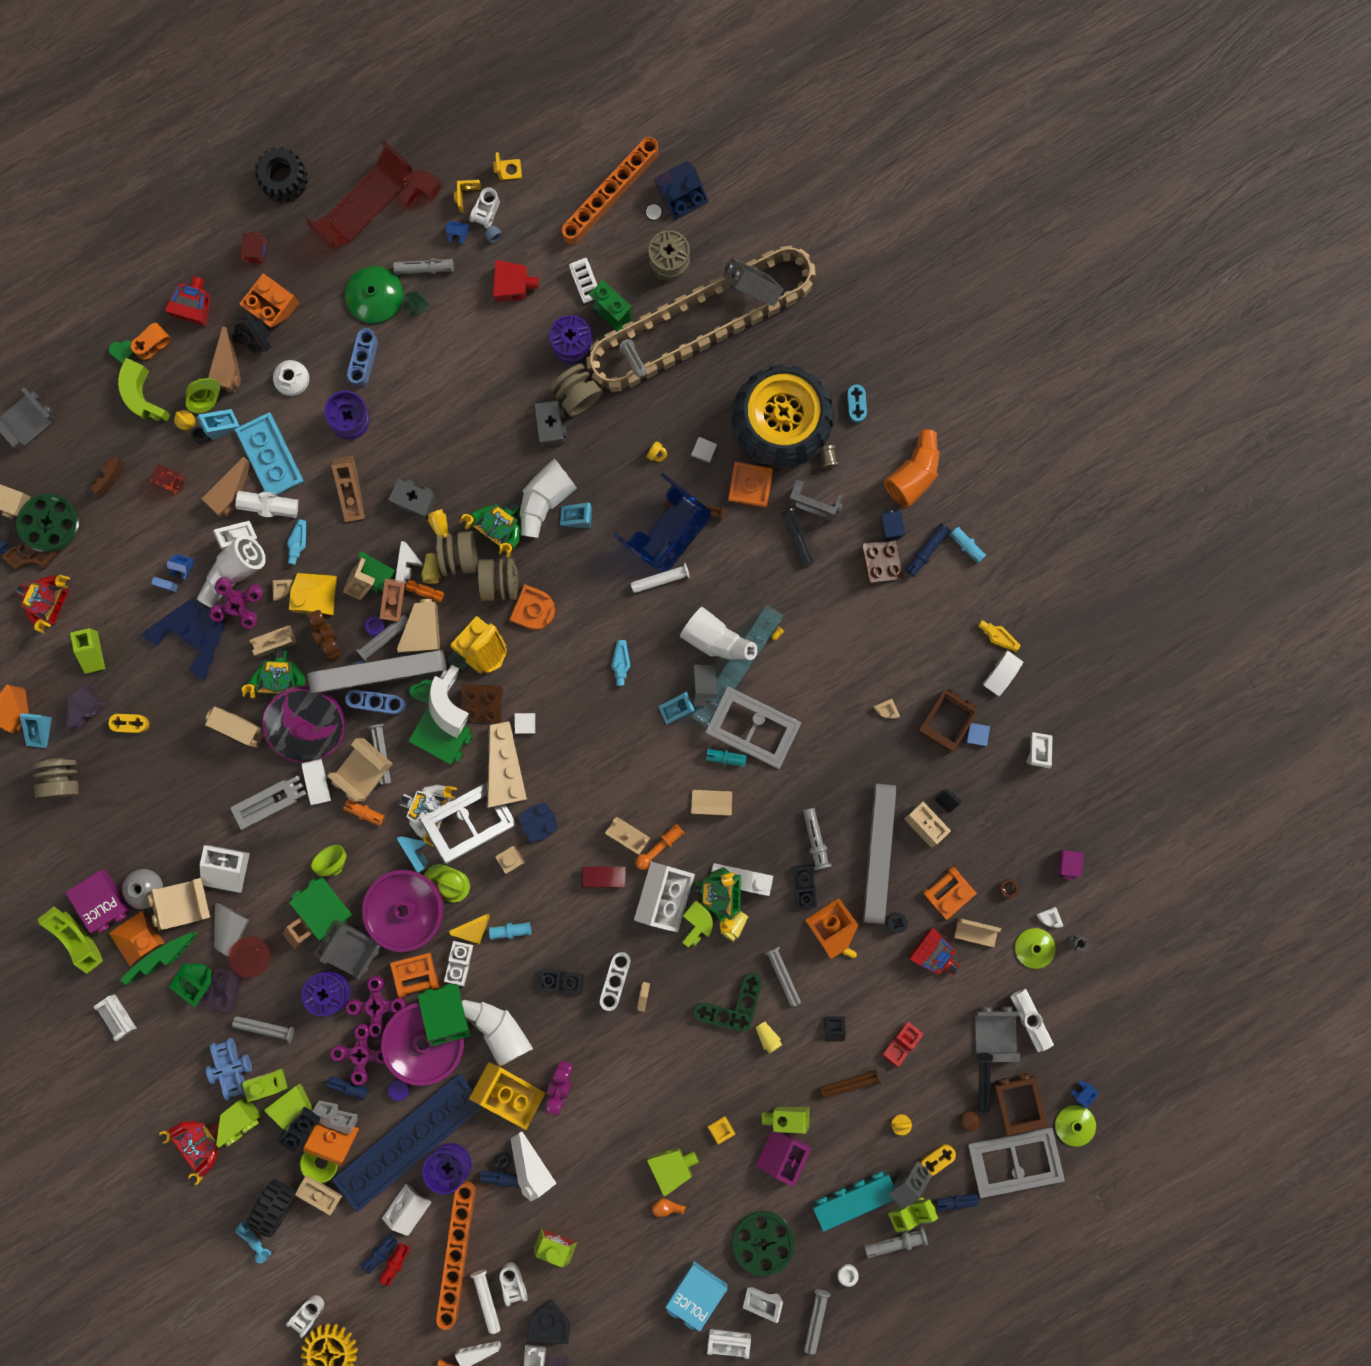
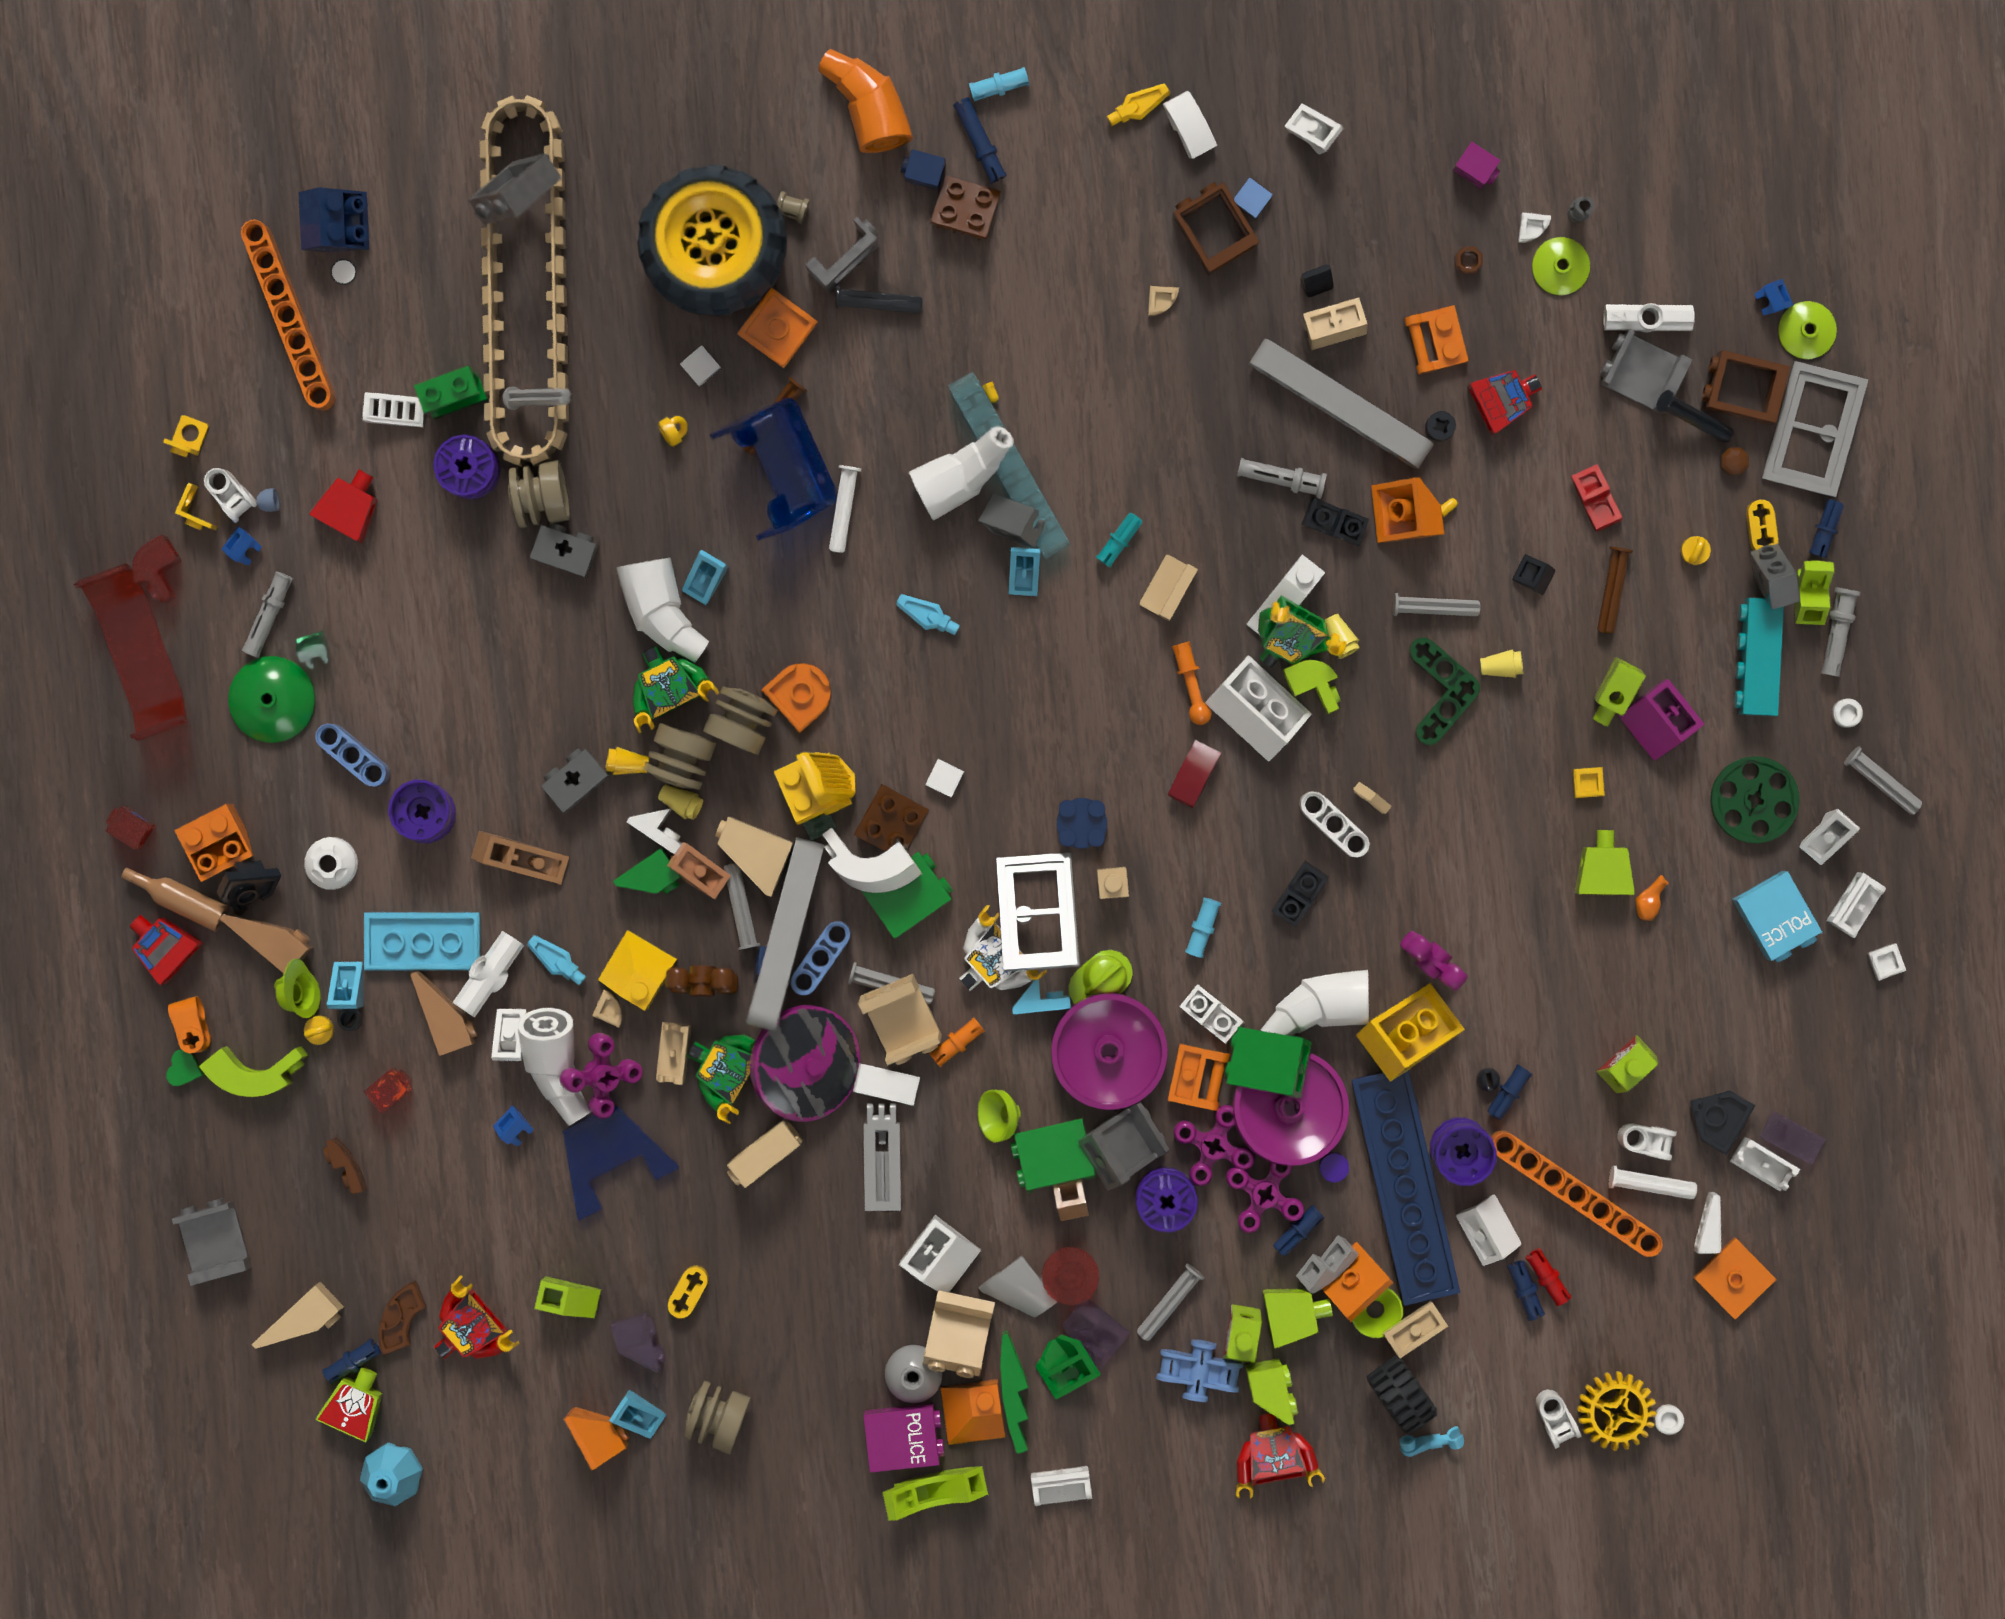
camera: 65 degrees left, 5 degrees up
(51, 530) = (356, 1277): dark green wedge -> none
(164, 584) = (528, 1158): medium blue tile -> none
(224, 298) = (180, 899): none -> medium nougat piece
(274, 161) = (23, 742): black tyre -> none
(298, 1128) = (1319, 1315): black slope -> none
(358, 582) = (652, 906): tan panel -> none
(374, 625) = (719, 911): dark purple tile -> none
(421, 691) = (836, 890): green tile -> none
(424, 591) = (705, 823): orange axle -> none
(473, 930) = (1178, 975): yellow slope -> none
(504, 772) = (999, 836): tan wing -> none
(530, 1170) = (1519, 1048): white slope -> none
(627, 835) = (1156, 716): tan hinge -> none
(669, 266) = (421, 297): dark tan wheel -> none
(758, 718) = (1083, 462): light grey door -> none
(852, 404) = (736, 139): medium azure beam -> none
(976, 932) = (1503, 331): tan panel -> none

